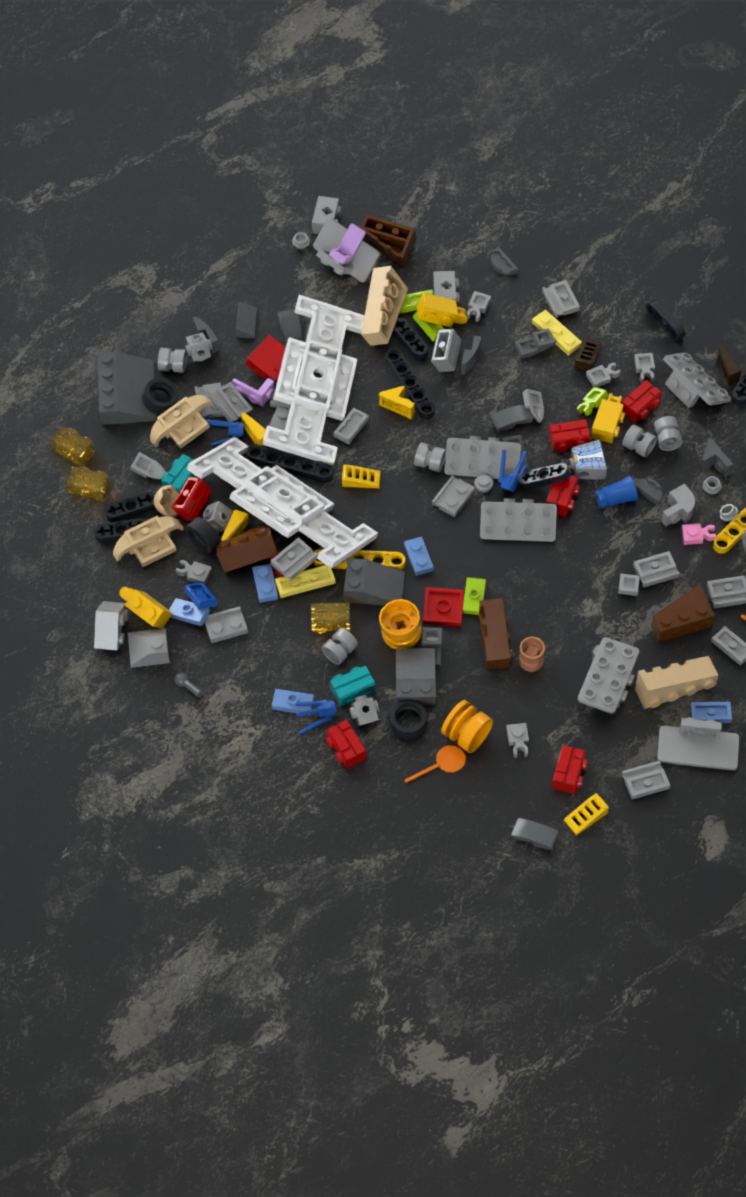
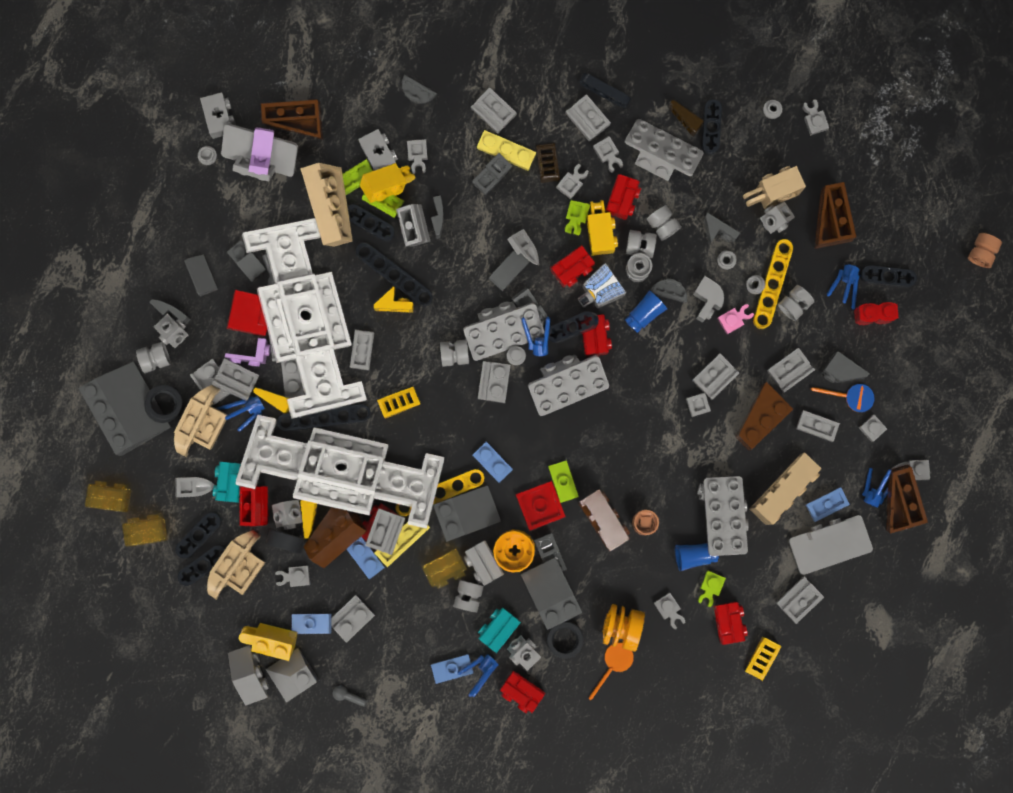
camera: 30 degrees left, 25 degrees up
(165, 499) = (229, 518): tan hair -> none
(200, 595) = (315, 604): blue plate -> none
(368, 627) = (484, 563): none -> light grey brick
(539, 834) = (727, 698): dark grey slope -> none
(564, 700) = (693, 555): none -> blue plant
(568, 735) = (712, 585): none -> lime plate
(628, 457) = (638, 267): none -> light grey wheel
(640, 334) = (588, 118): none -> light grey plate

